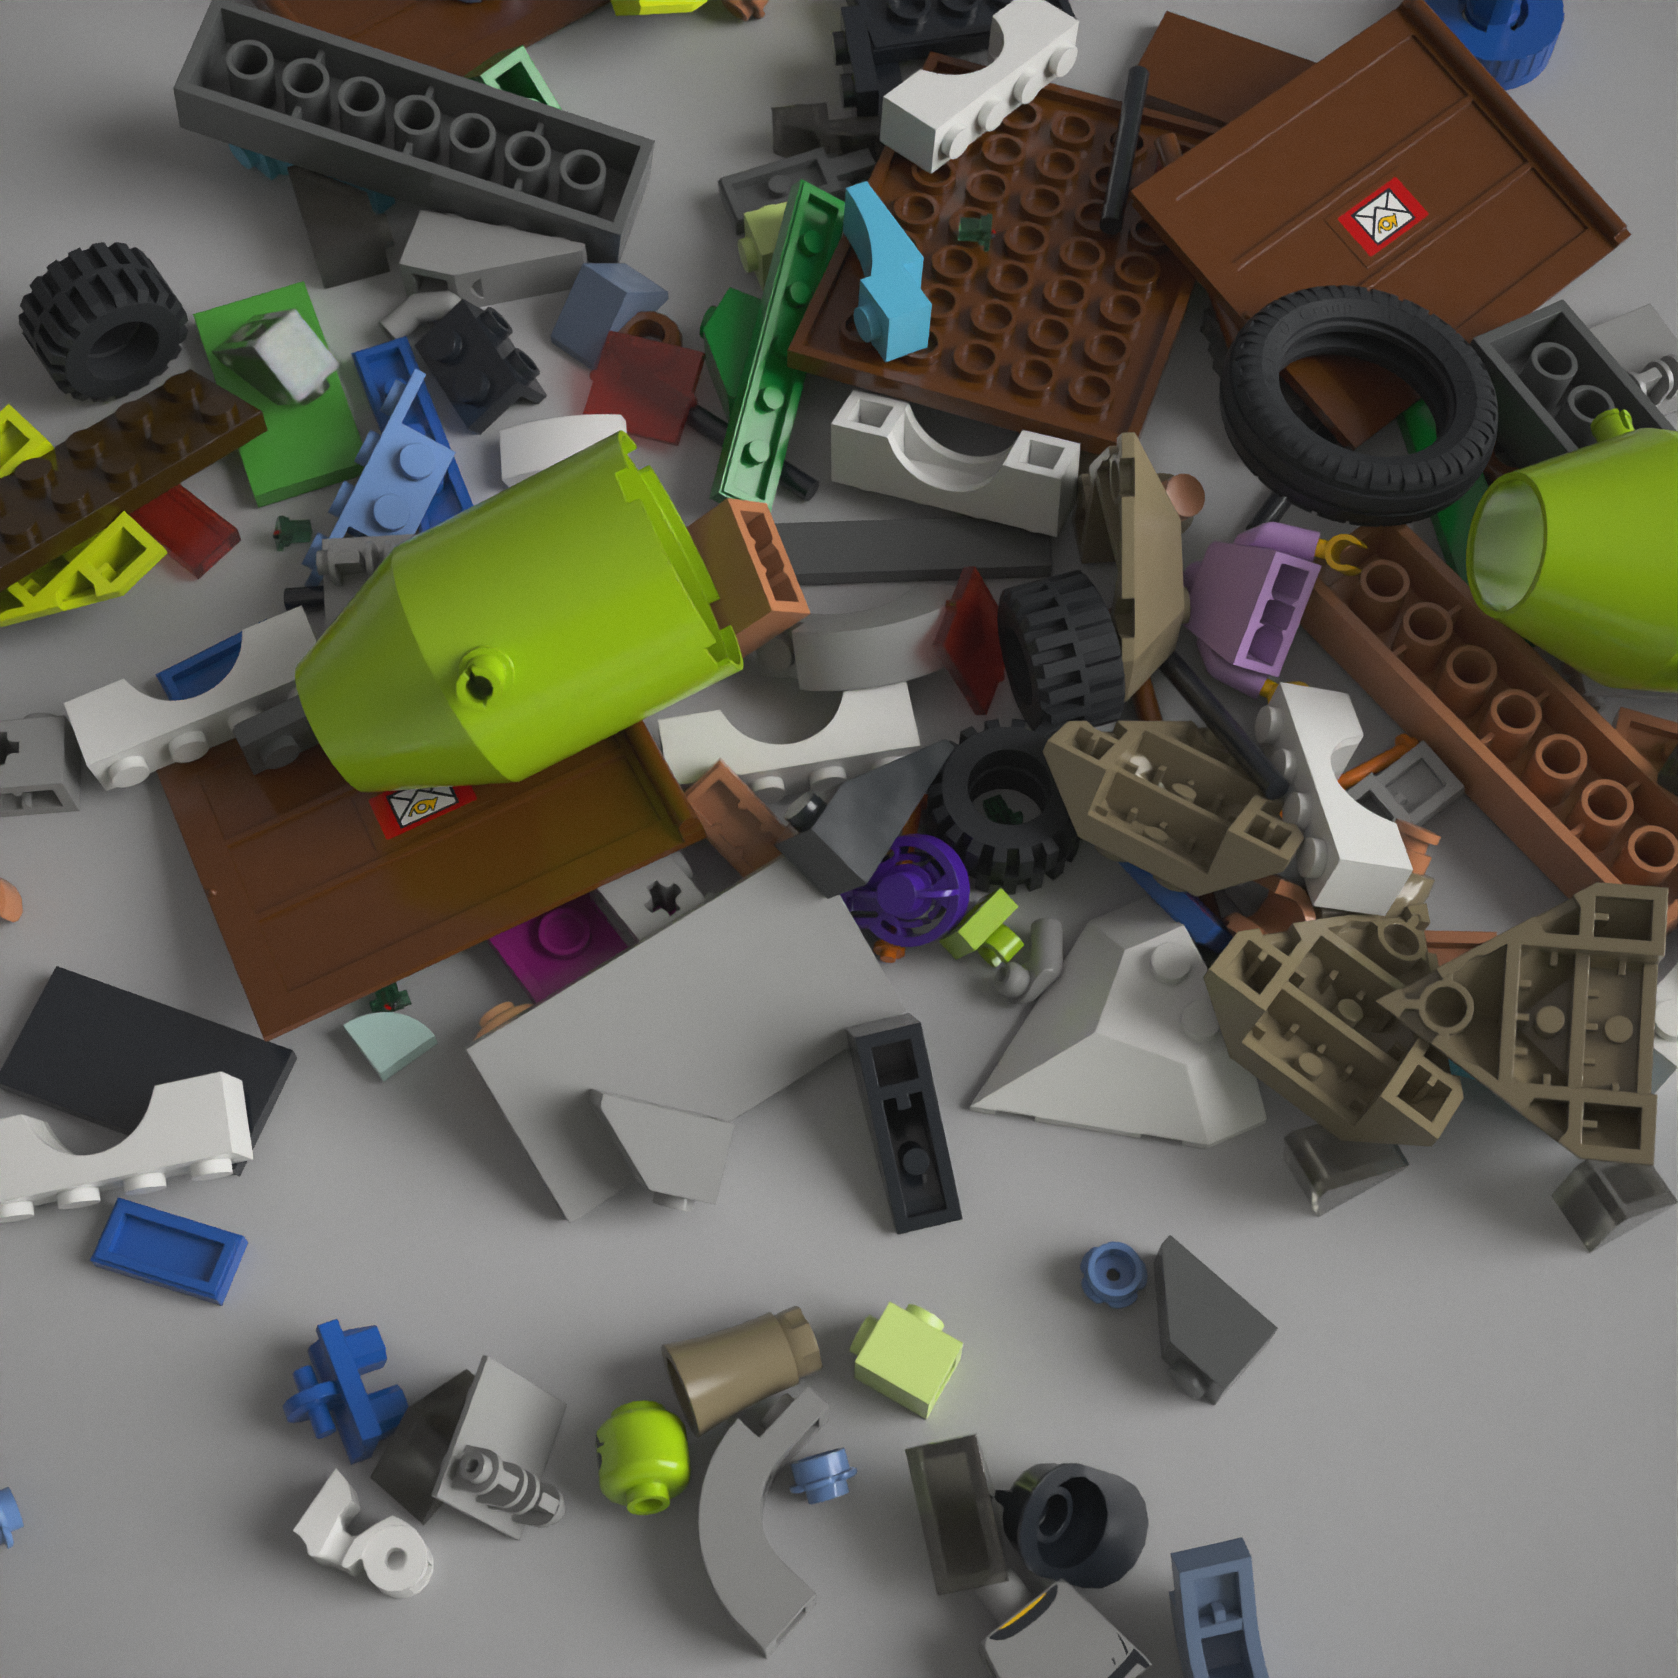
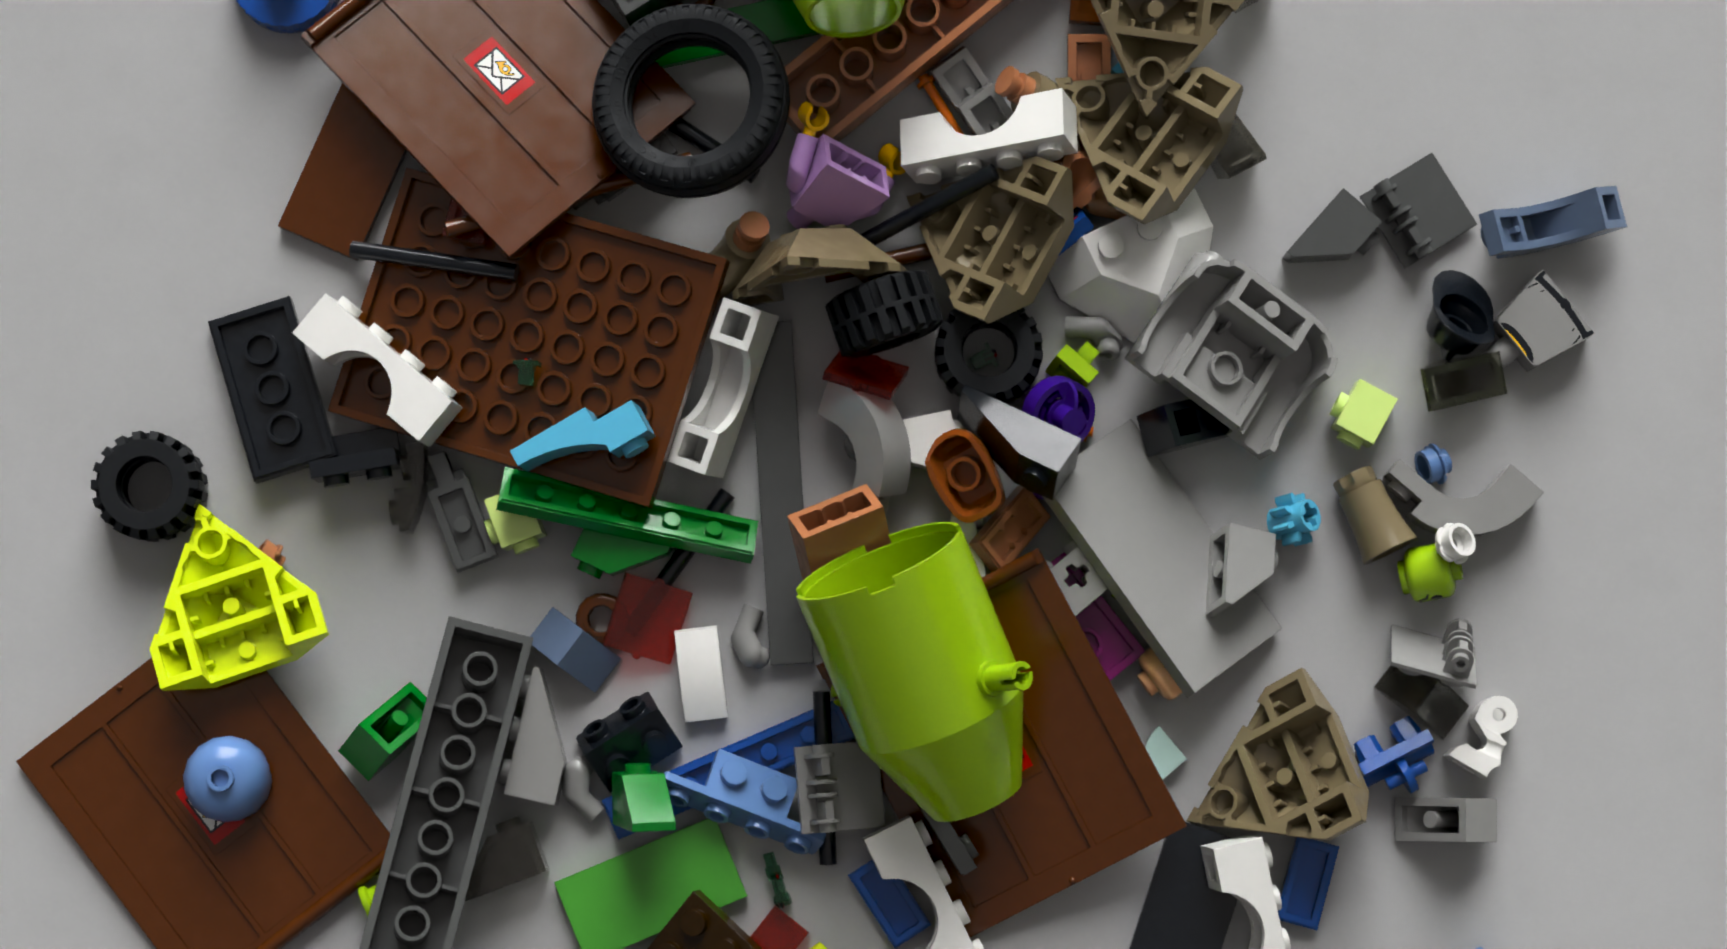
camera: 90 degrees left, 20 degrees up
(233, 1473) = (1446, 819): none -> light grey slope
(252, 539) = (782, 897): none -> clear green piece
(279, 357) = (638, 890): clear smoke slope -> none
(340, 1219) = (1288, 769): none -> dark tan wedge
(386, 344) = (641, 799): none -> slope
(690, 1498) = (1455, 542): none -> white plate
(739, 1240) = (1293, 519): none -> medium azure gear
(817, 740) = (965, 475): none -> dark orange piece
(1007, 1142) = (1235, 349): none -> light grey piece
(1115, 1257) = (1310, 280): medium blue plate -> none
(1247, 1466) = (1418, 210): none -> dark grey hinge

